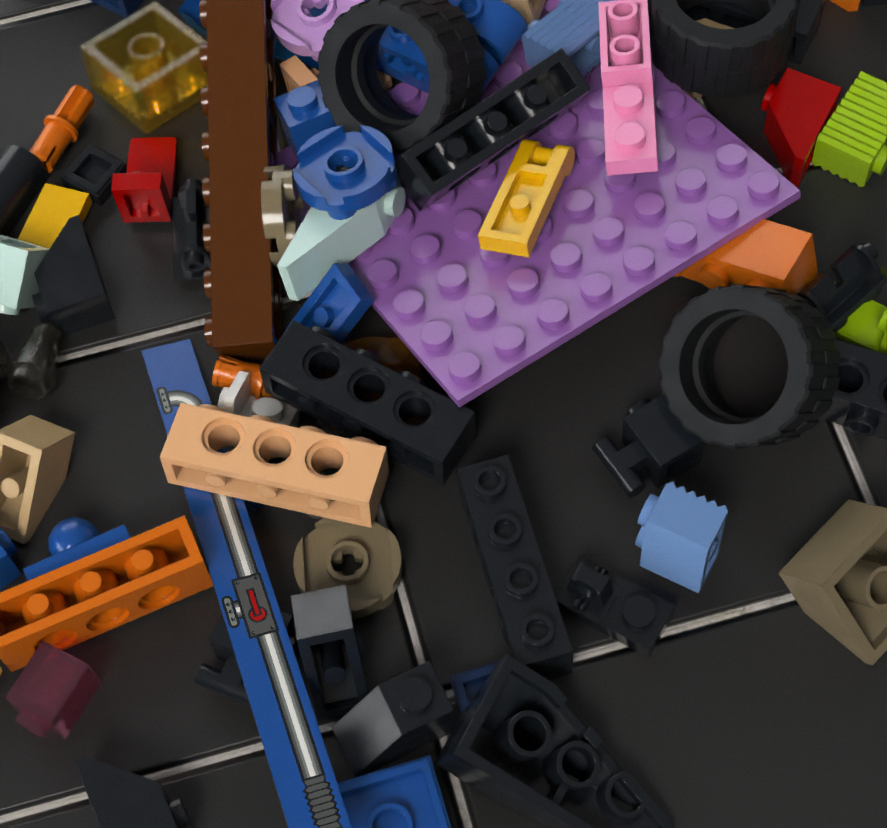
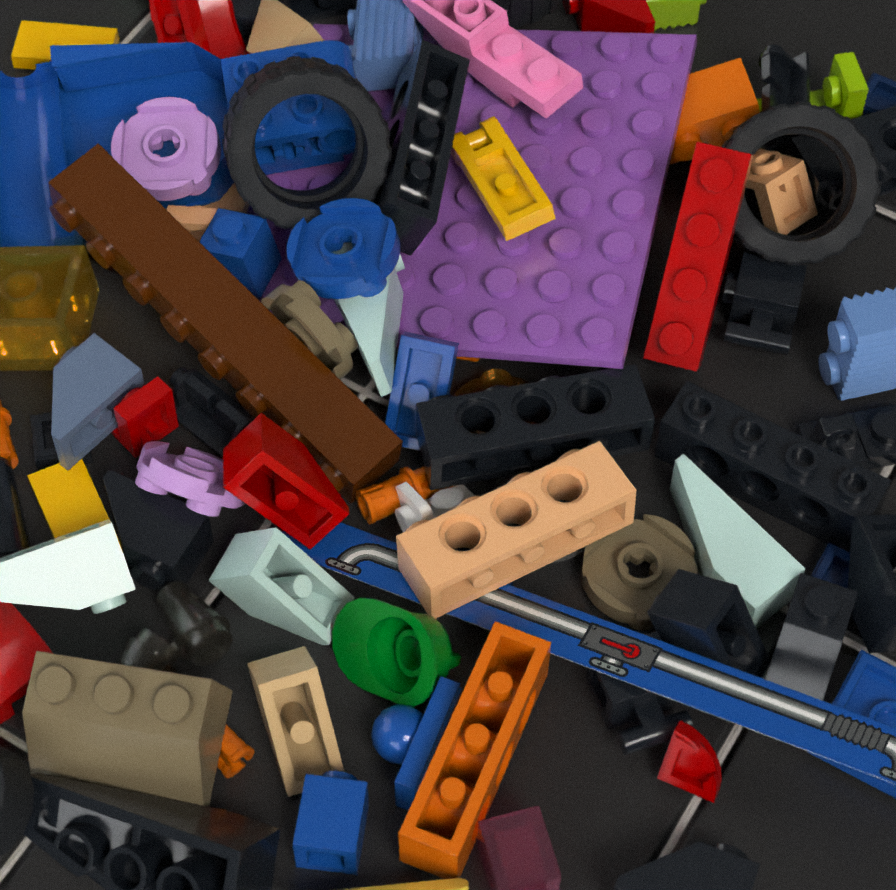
camera: 50 degrees left, 5 degrees down
(110, 384) = (280, 584): none -> light aqua slope
(113, 147) = (85, 391): none -> sand blue slope
(125, 262) = (190, 475): none -> lavender plate
(129, 486) = (392, 650): none -> green piece
(166, 307) = (282, 481): none -> red slope
(230, 729) = (691, 763): none -> red tile
(417, 606) = (732, 544): none -> light aqua slope
(607, 363) = (698, 256): none -> red brick
(758, 364) = (781, 190): none -> light nougat bracket

